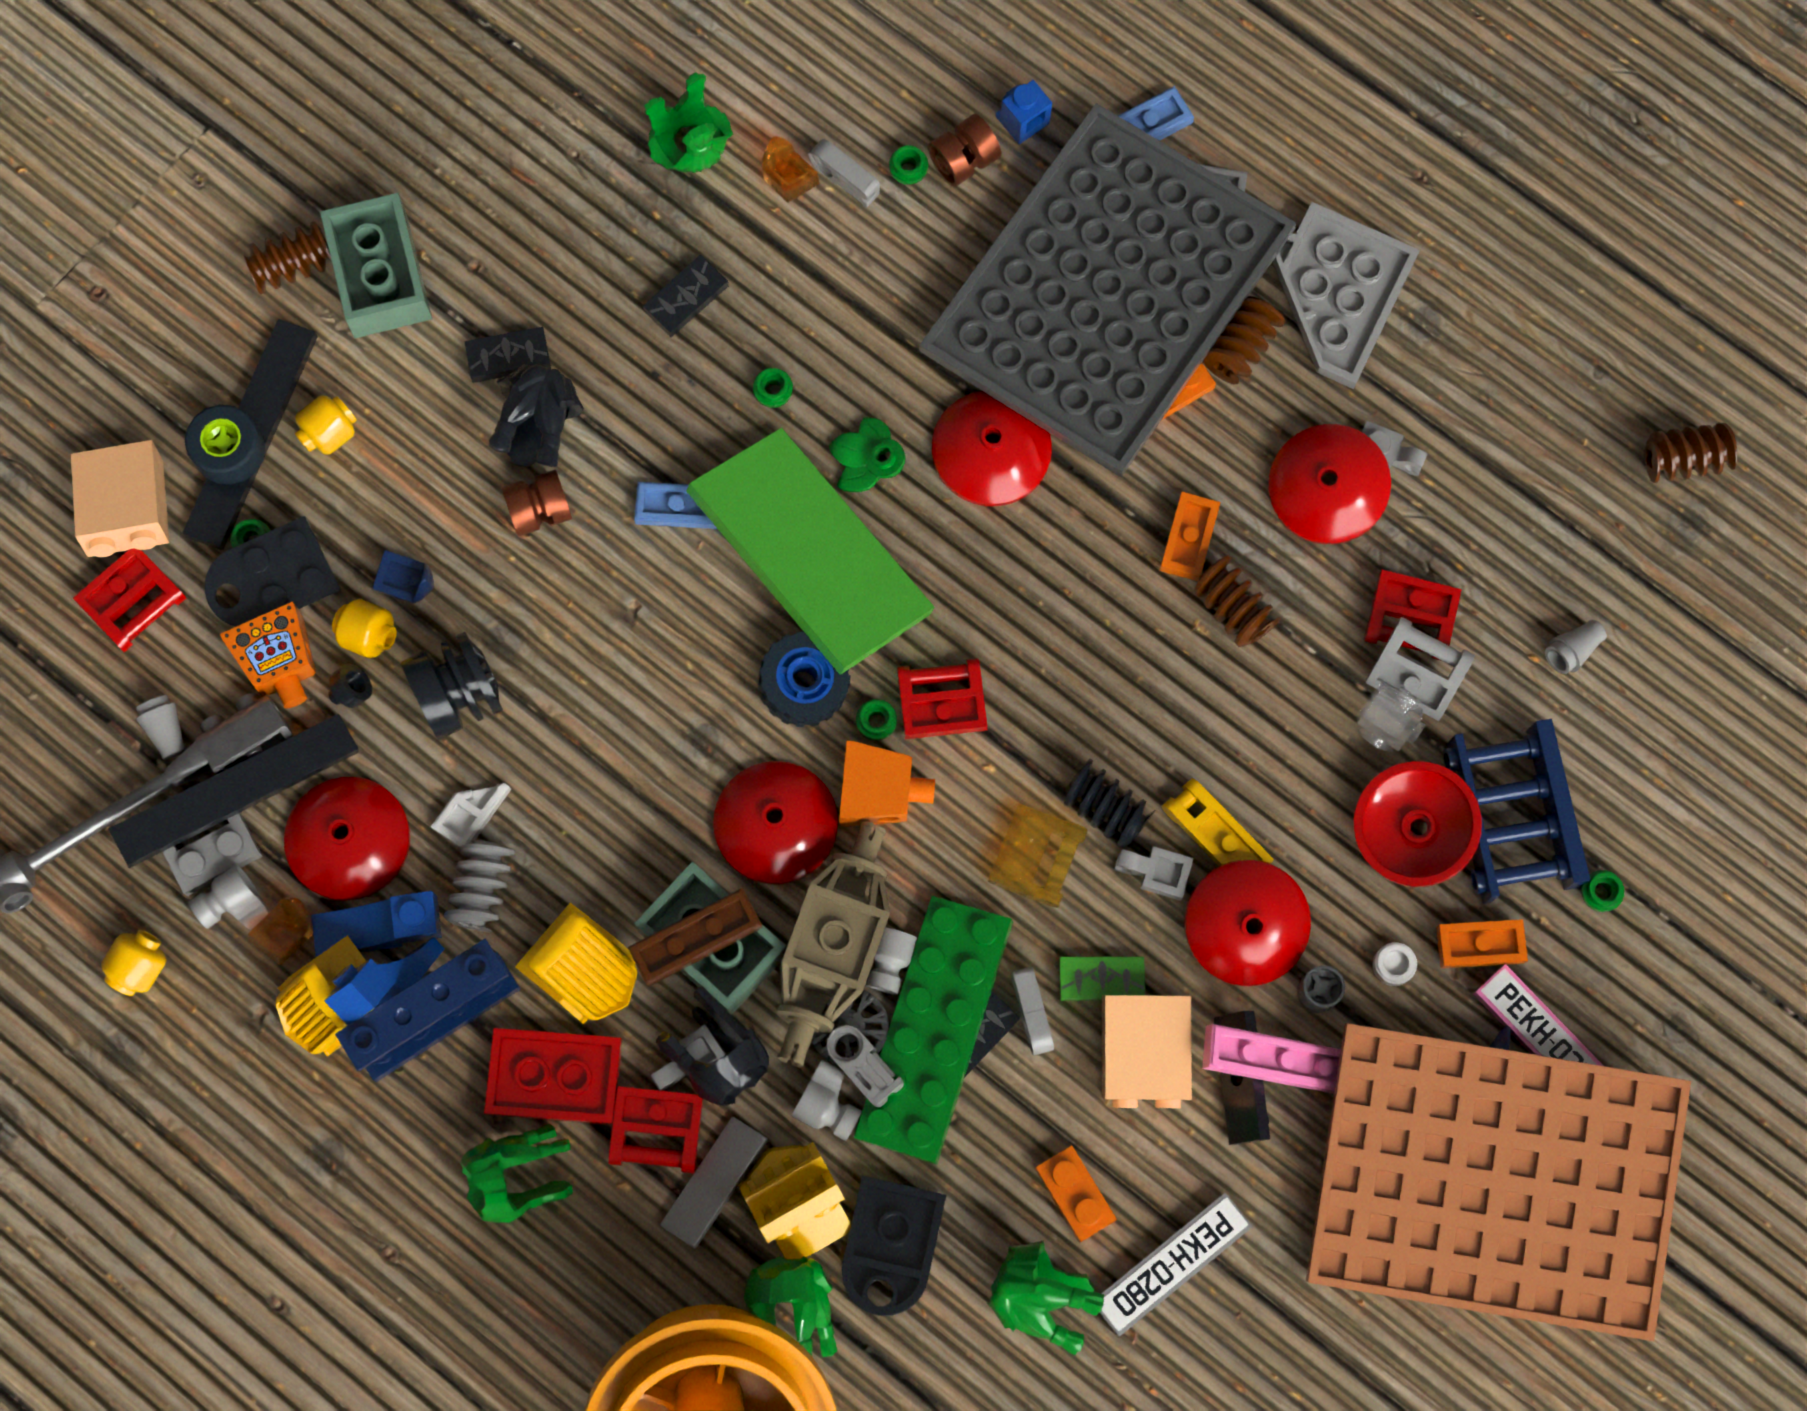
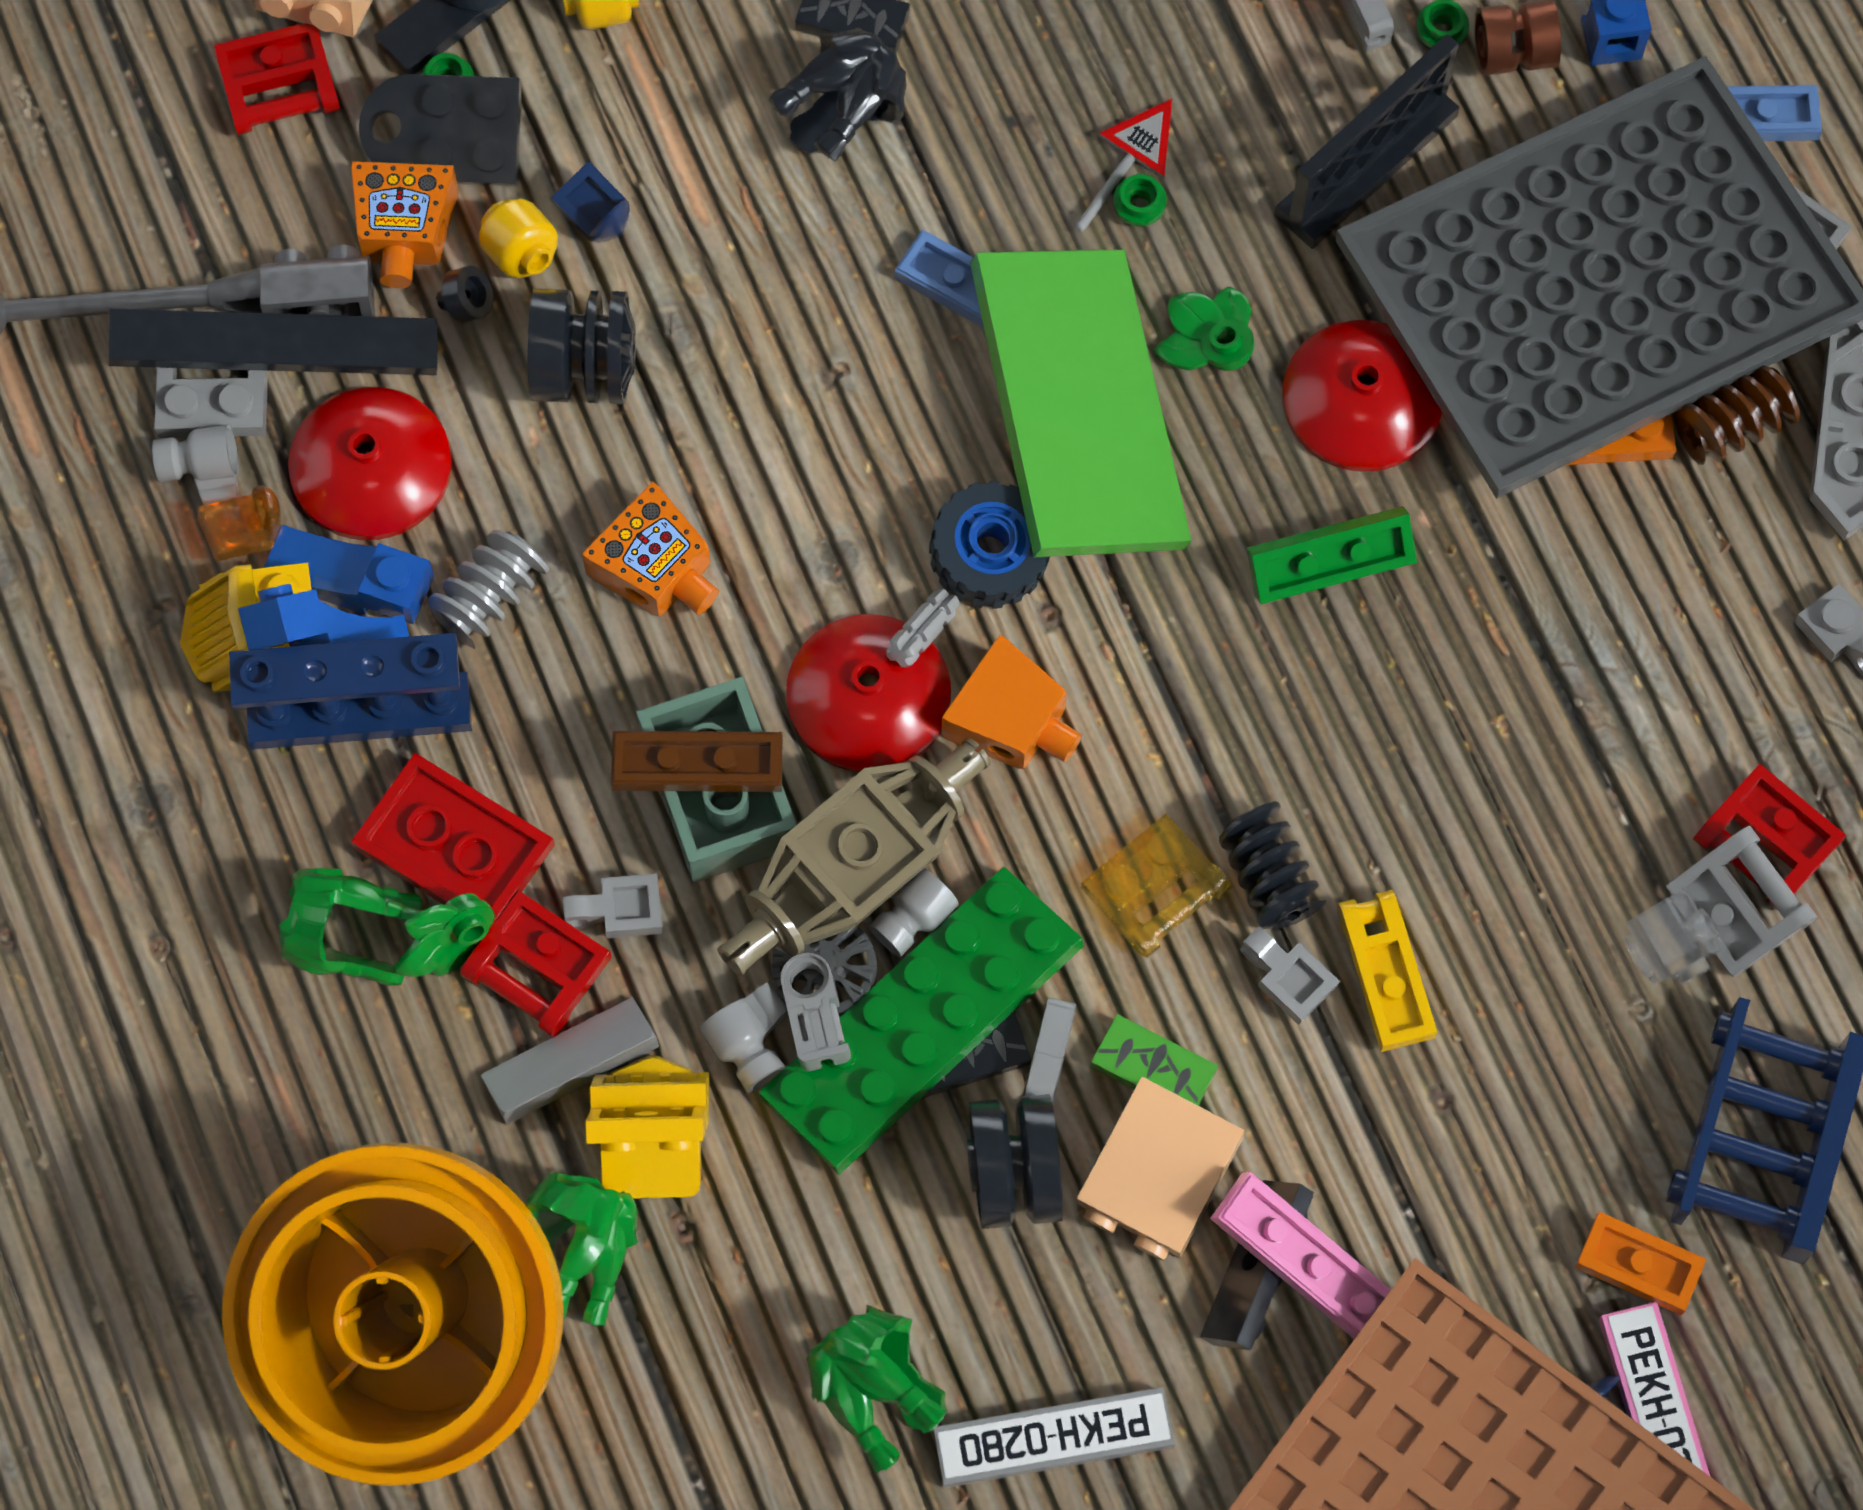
camera: 30 degrees right, 5 degrees down
(133, 962) = (57, 475): yellow head -> none
(161, 725) = (233, 232): light grey cone -> none
(469, 813) = (523, 503): white tile -> none
(536, 503) = (791, 194): copper wheel -> none
(581, 805) = (652, 556): none -> orange torso
(581, 966) = (551, 736): yellow piece -> none
(587, 1145) = (445, 936): none -> green plate
(685, 296) = (1096, 49): black tile -> none
(734, 1072) = (658, 935): black piece -> none
(751, 344) = (1142, 140): none -> piece
(790, 761) = (922, 627): none -> light grey axle
(876, 707) = (1055, 620): green plate -> none
(891, 1242) = (736, 1233): black plate -> none
(910, 277) = (1372, 147): none -> black fence
(942, 711) = (1135, 663): red plate -> none
(1032, 570) = (1331, 555): none -> green plate
(1057, 1092) = (1015, 1161): none -> black wheel
(1075, 1194) = (984, 1296): orange plate -> none
(1190, 536) = (1545, 611): orange plate -> none
(1219, 915) = (1321, 1099): red dish -> none
(1234, 603) = (1553, 715): reddish brown piece -> none
(1327, 984) = (1414, 1201): dark grey wheel -> none
(1335, 511) = (1756, 667): red dish -> none
(1394, 964) = (1520, 1233): white tile -> none
(1414, 794) = (1629, 1044): red dish -> none
(1611, 883) = (1839, 1268): green plate -> none

